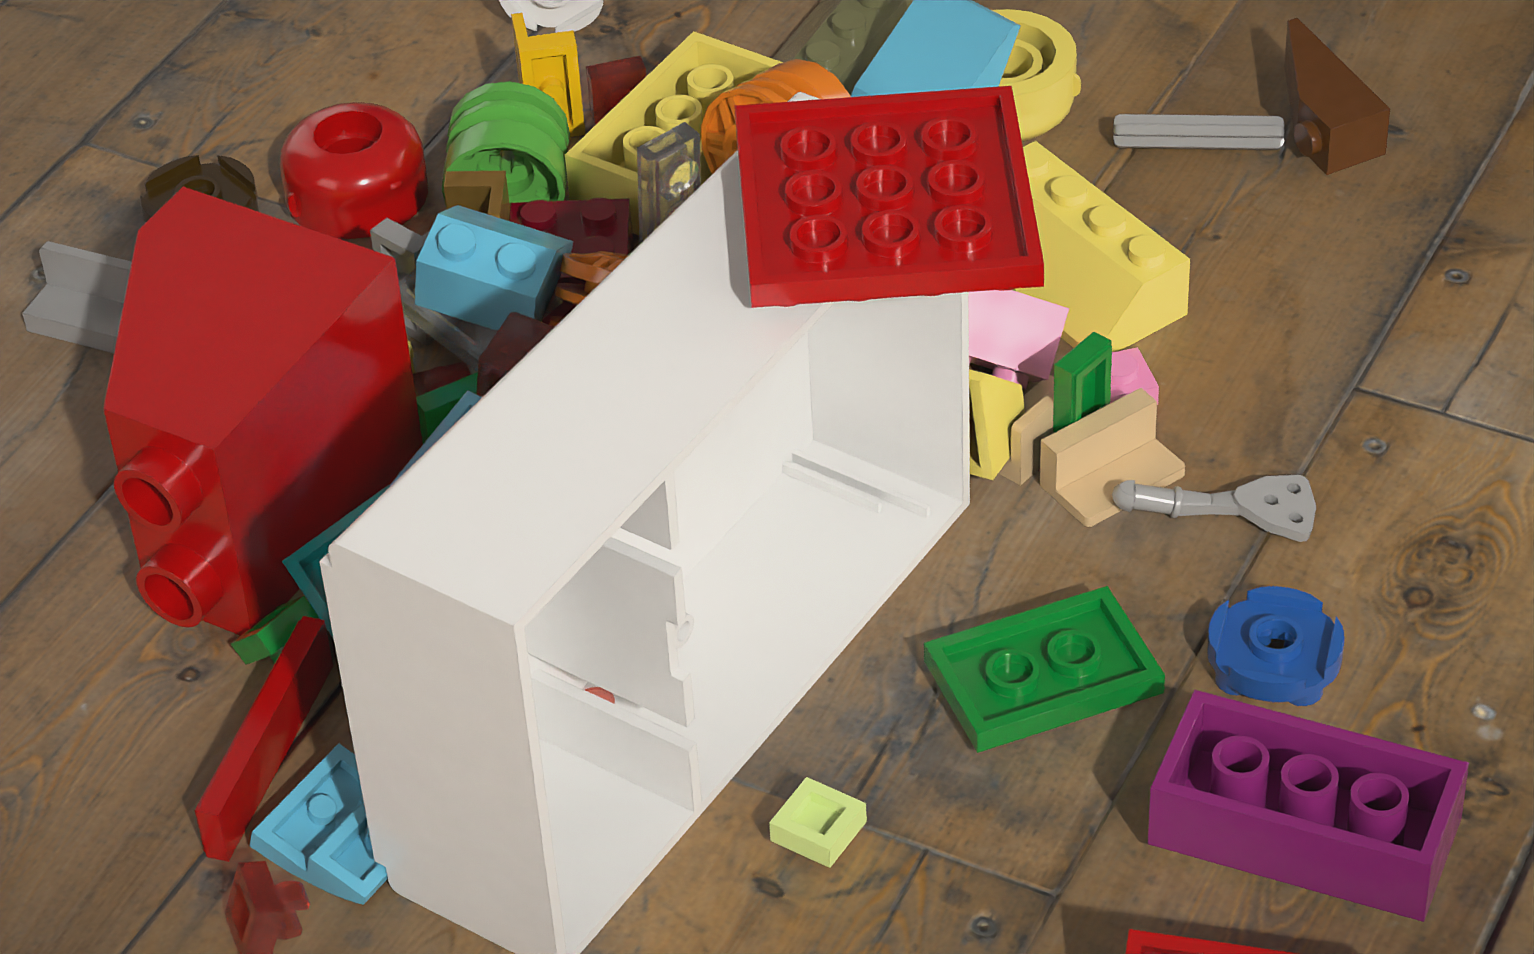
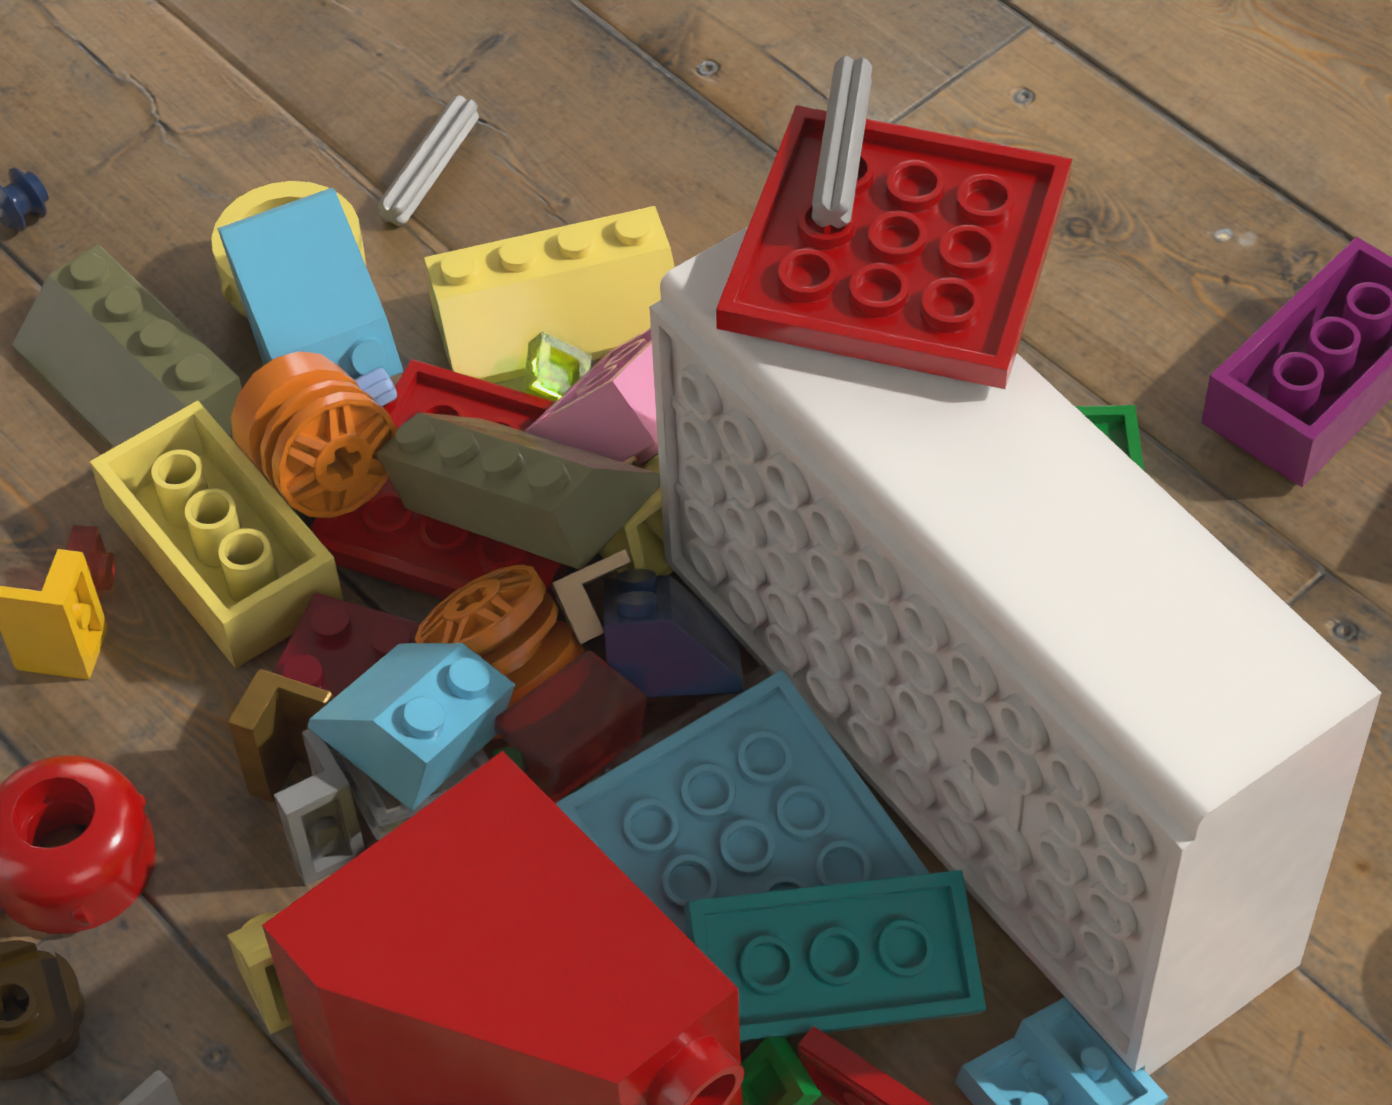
camera: 70 degrees left, 10 degrees up
(513, 131) = (171, 684): bright green wheel -> none
(666, 175) = (375, 546): clear plate -> none
(964, 112) = (842, 142): none -> light grey axle
(1290, 674) = (1111, 354): blue plate -> none
(1332, 109) = (448, 59): reddish brown slope -> none

